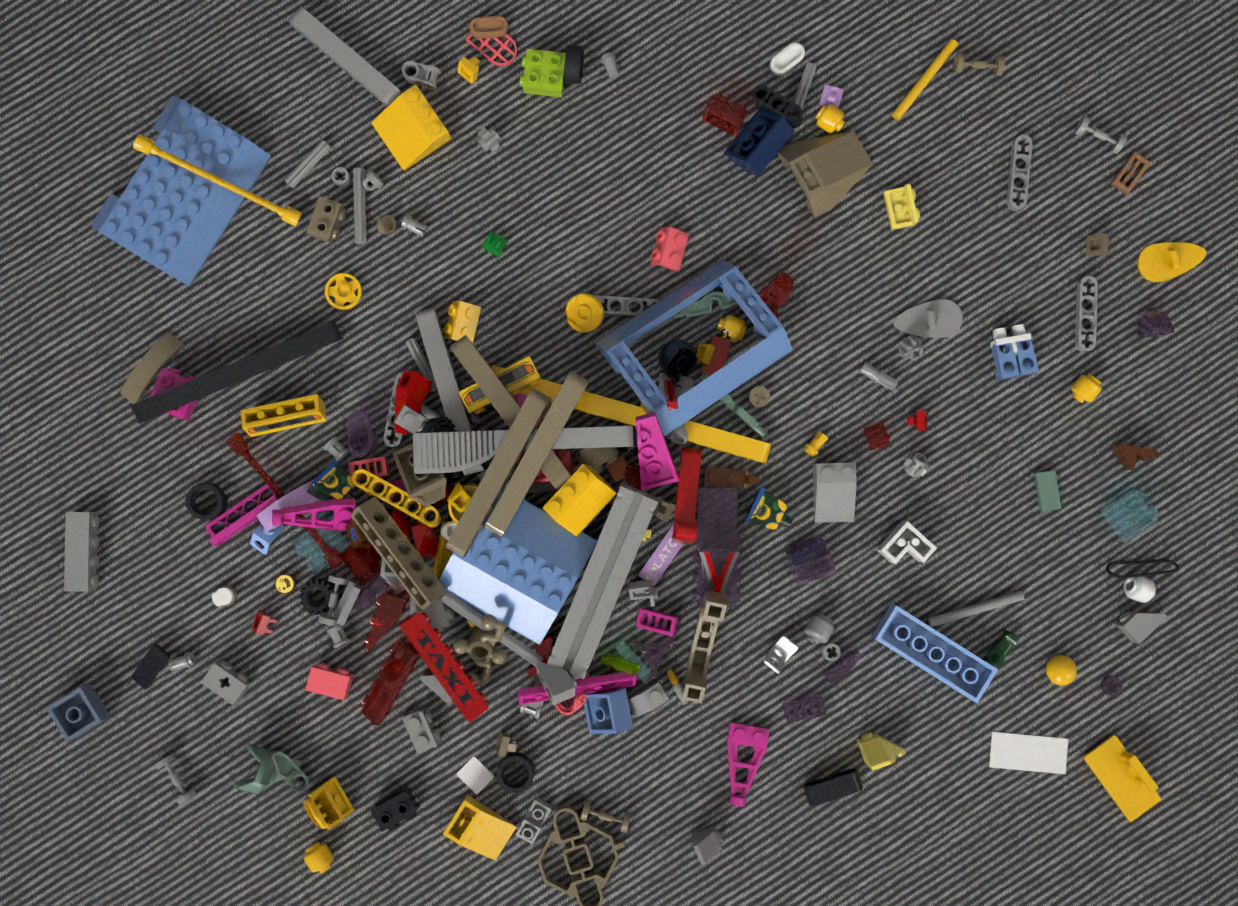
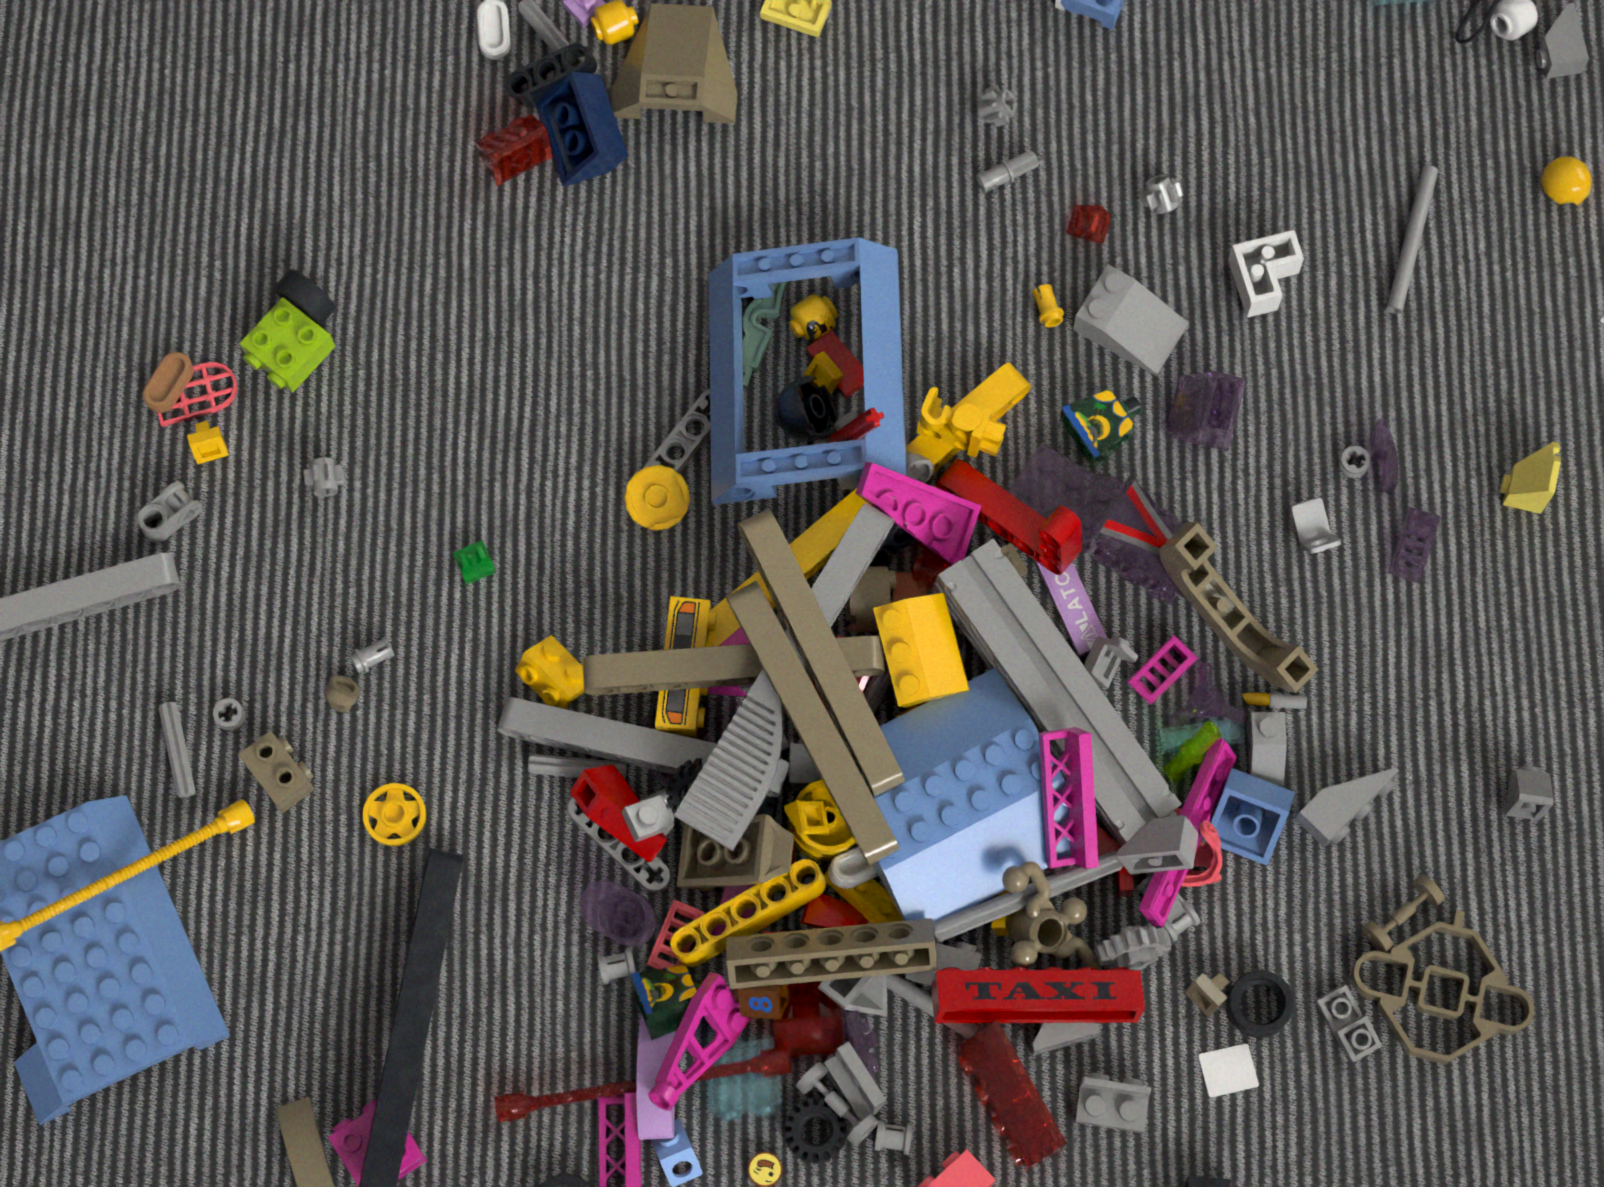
camera: 55 degrees left, 15 degrees down
(283, 415) = (517, 1007): yellow brick -> none
(359, 206) = (289, 714): light grey axle -> none
(374, 179) = (268, 668): light grey tile -> none
(388, 613) = (908, 1041): clear red slope -> none
(411, 128) = (231, 572): yellow slope -> none
(479, 828) = (1311, 1106): yellow slope -> none
(500, 696) = (1134, 947): none -> light grey gear
(553, 627) = (1080, 795): none -> dark pink fence
(609, 61) = (338, 255): light grey pin -> none
(638, 751) = (1338, 805): none -> light grey slope
(669, 248) = (644, 332): coral bracket -> none
(714, 445) = (963, 428): none -> yellow hips
(728, 478) = (1019, 449): reddish brown hinge -> none
(740, 412) = (936, 376): sand green piece -> none
(749, 736) = (1408, 643): dark pink plate -> none
(759, 396) = (932, 339): dark tan piece -> none
(777, 292) = (804, 217): clear red piece -> none
(819, 629) = (1312, 455): light grey head -> none
(833, 787) = (1550, 573): black beam -> none
(920, 420) = (1103, 154): red tile -> none
(931, 319) = (974, 61): light grey shield -> none
(934, 653) = (1439, 324): light blue brick -> none
(999, 651) = (1492, 246): dark green piece -> none
(1047, 491) = (1306, 53): sand green tile -> none

